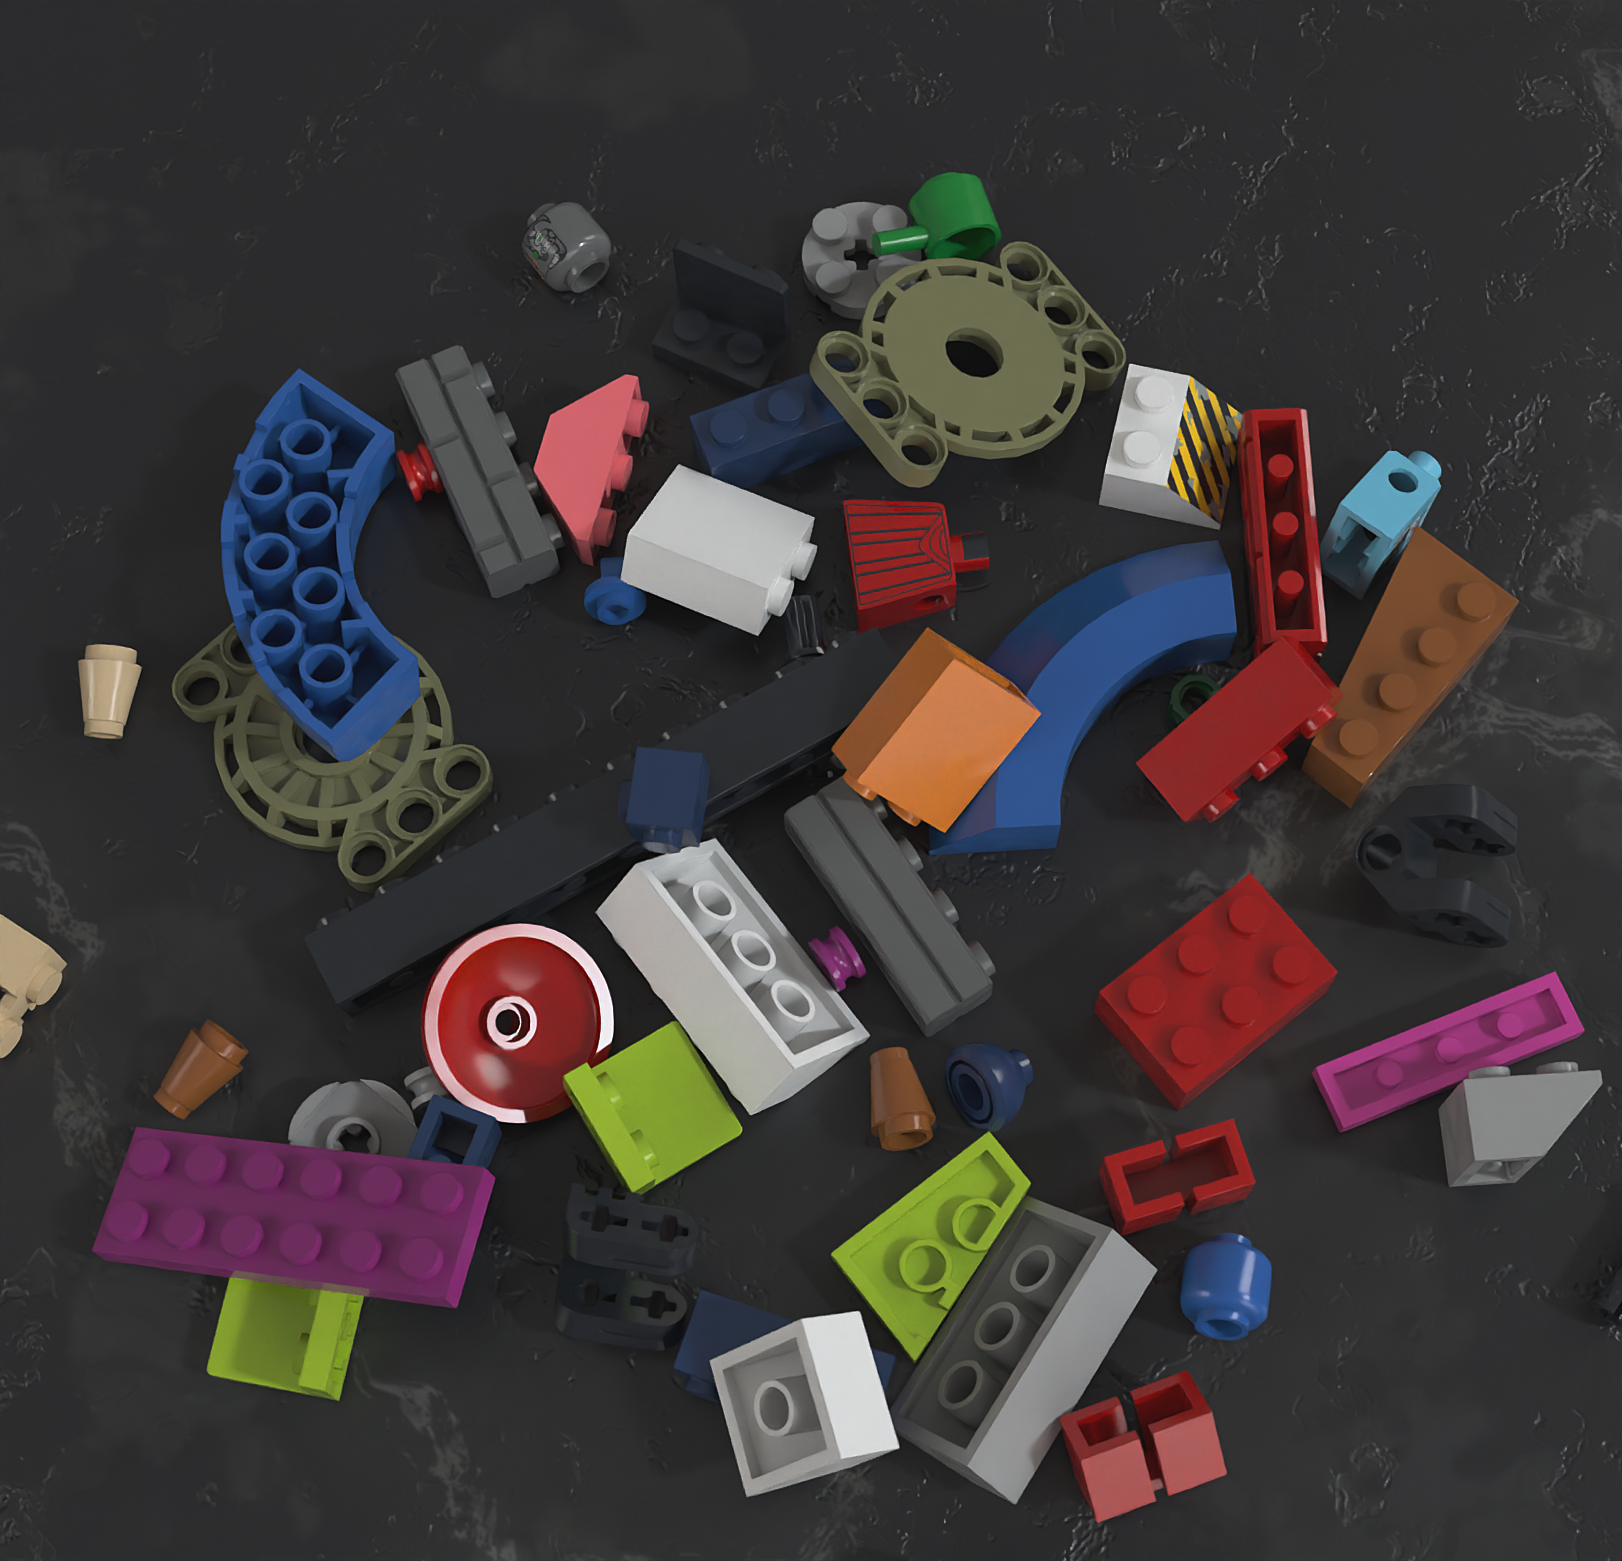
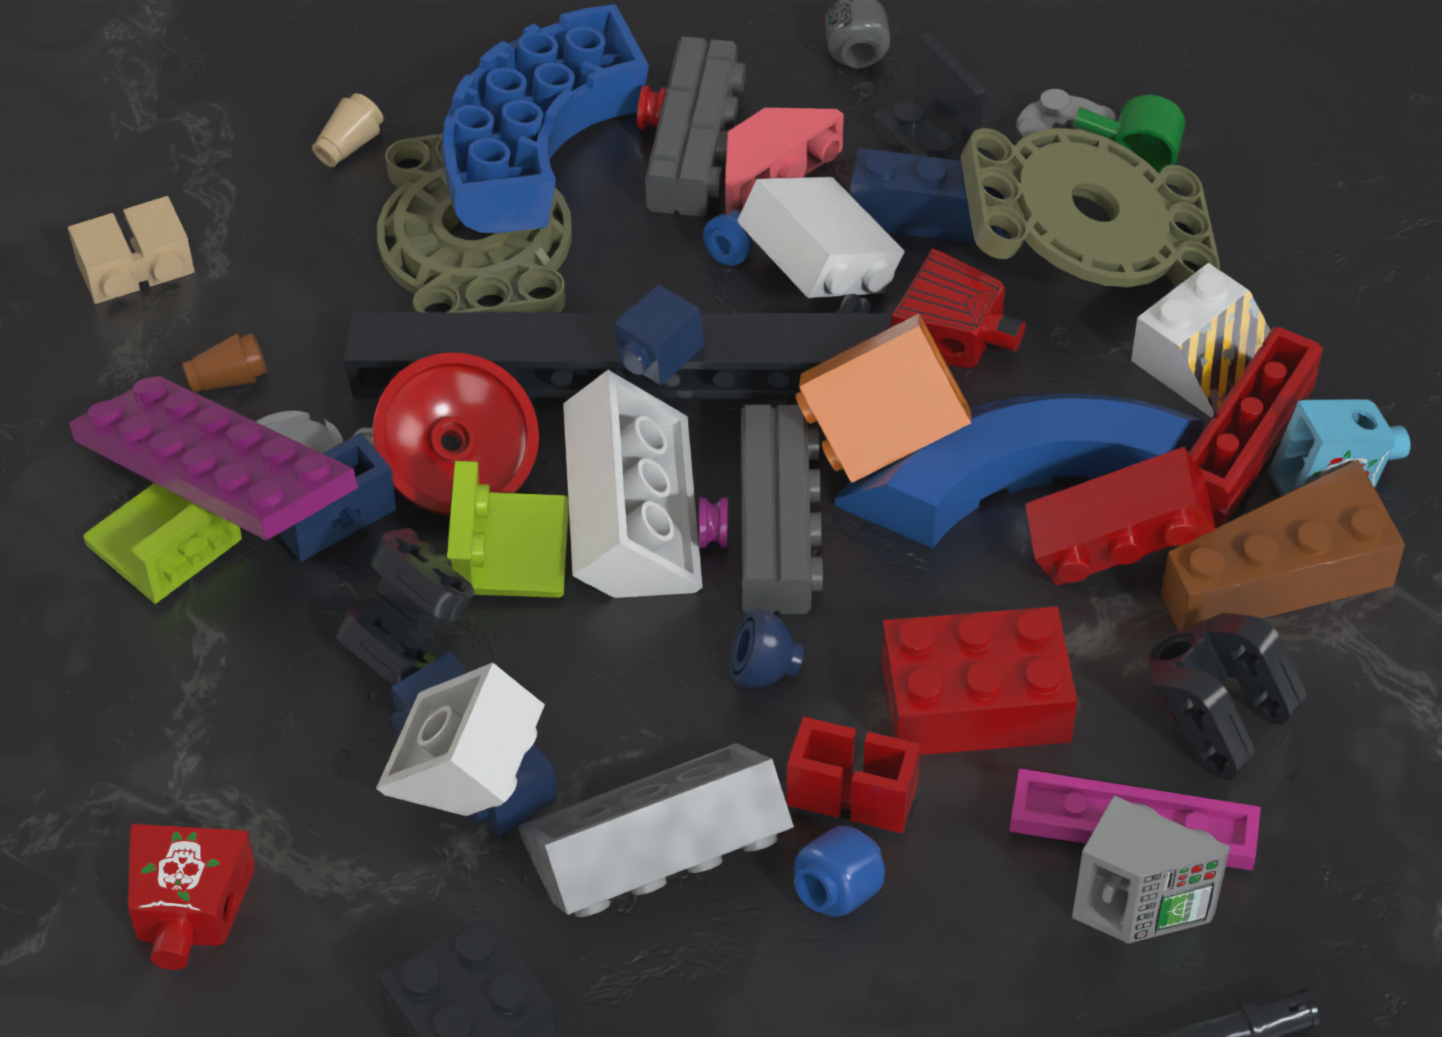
camera: 30 degrees right, 20 degrees down
(898, 1102) = (686, 633): dark orange cone -> none
(932, 1241) = (645, 728): lime wing -> none
(1176, 1438) = (660, 928): red piece -> none

